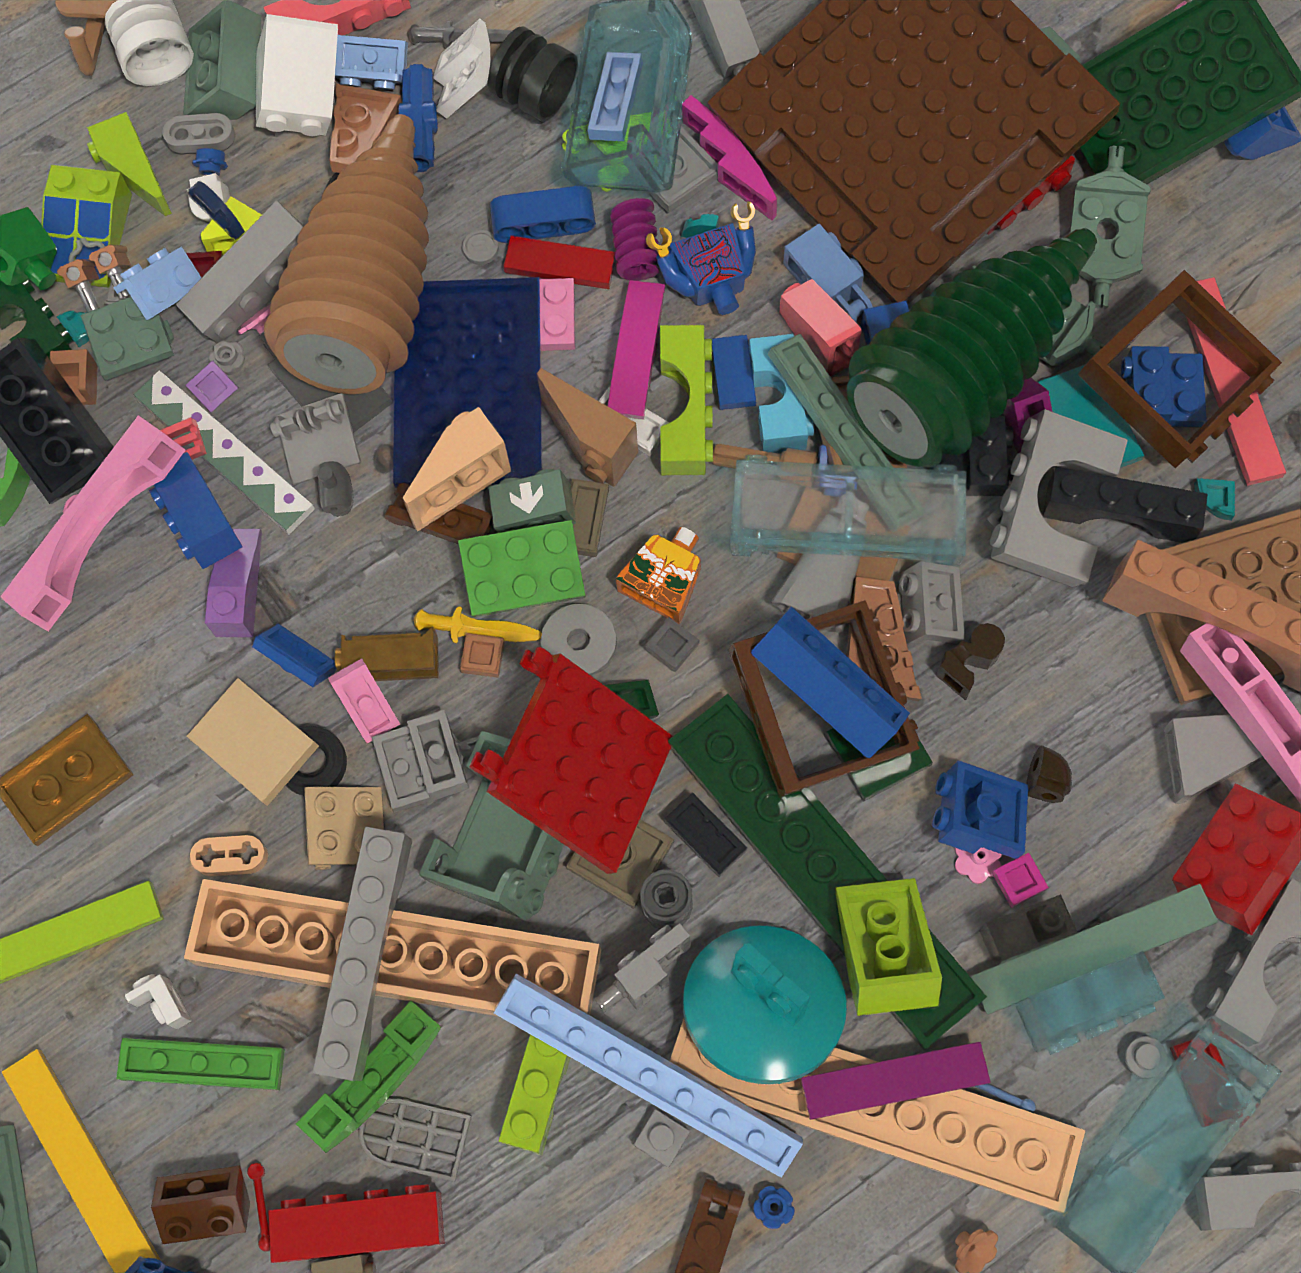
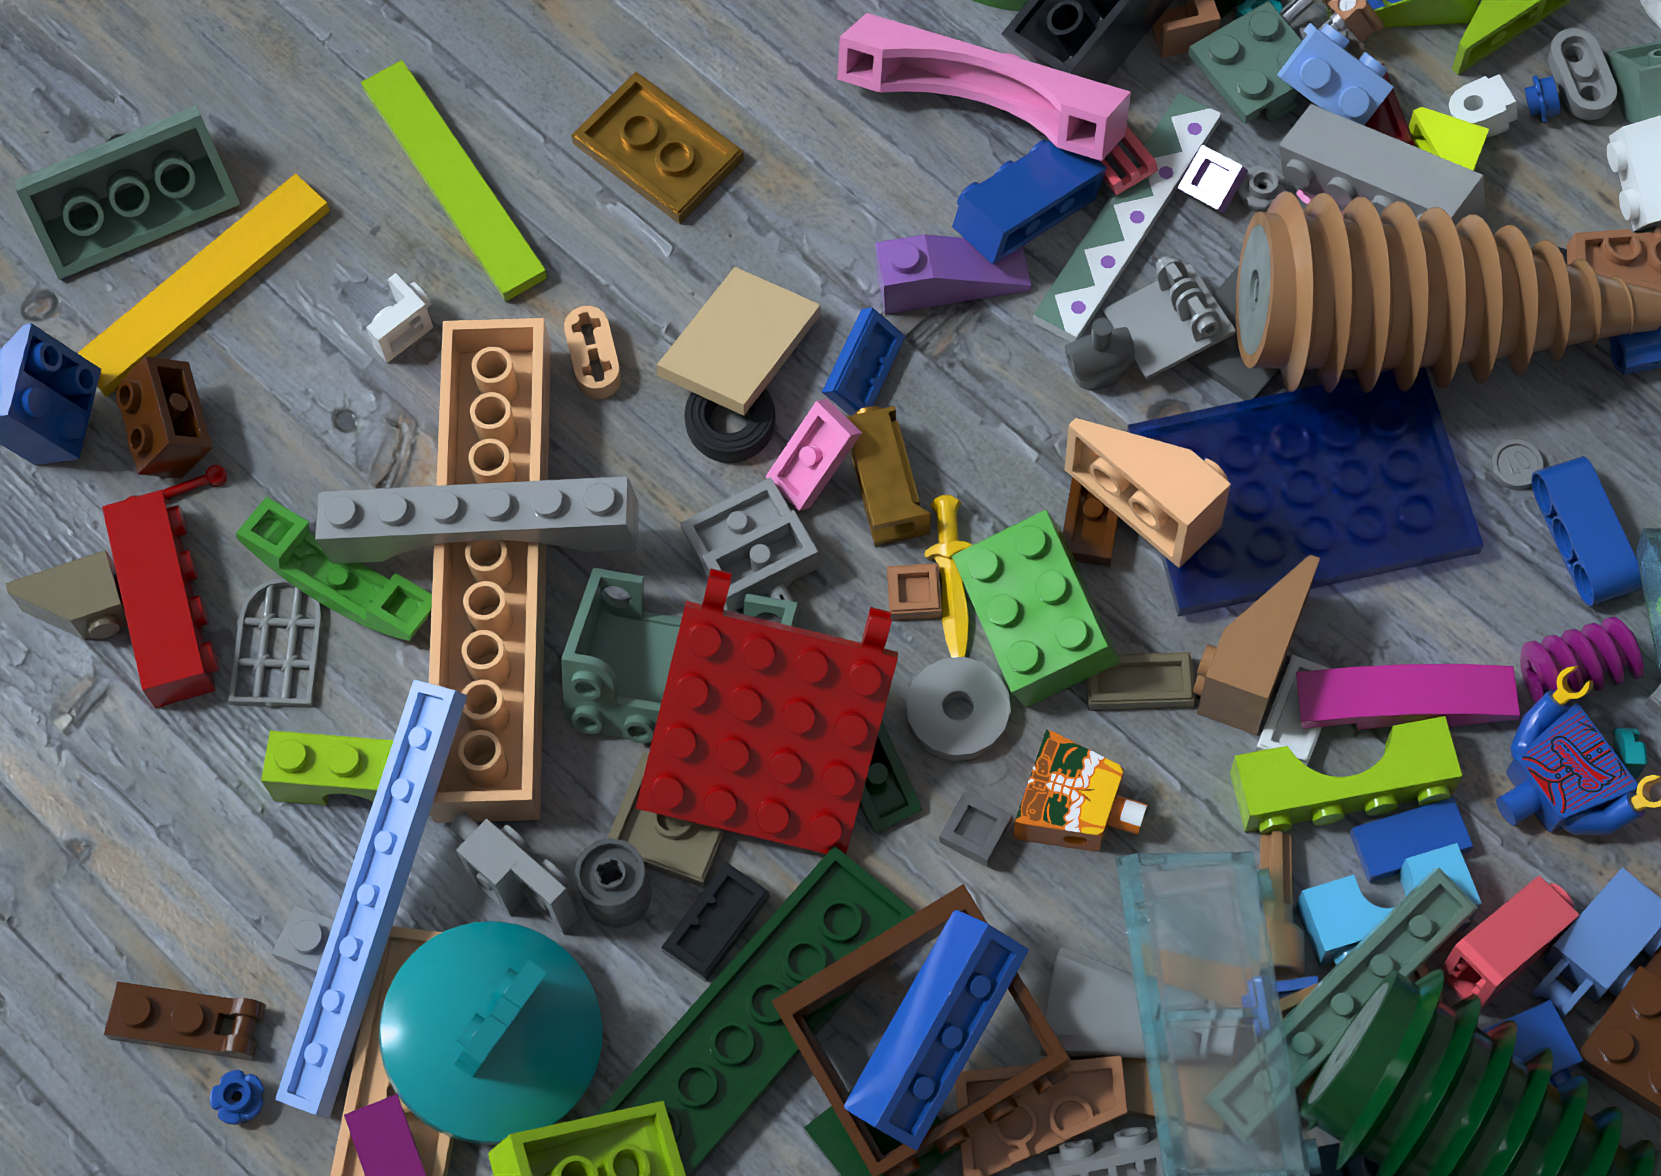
camera: 80 degrees right, 5 degrees down
(200, 1064) = (334, 385): bright green tile -> none
(216, 209) = (1460, 108): dark blue tile -> none
(338, 822) = (660, 466): tan hinge -> none
(531, 501) = (1136, 603): sand green brick -> none
(557, 314) = (1438, 585): bright pink plate -> none
(559, 261) = (1520, 570): red tile -> none

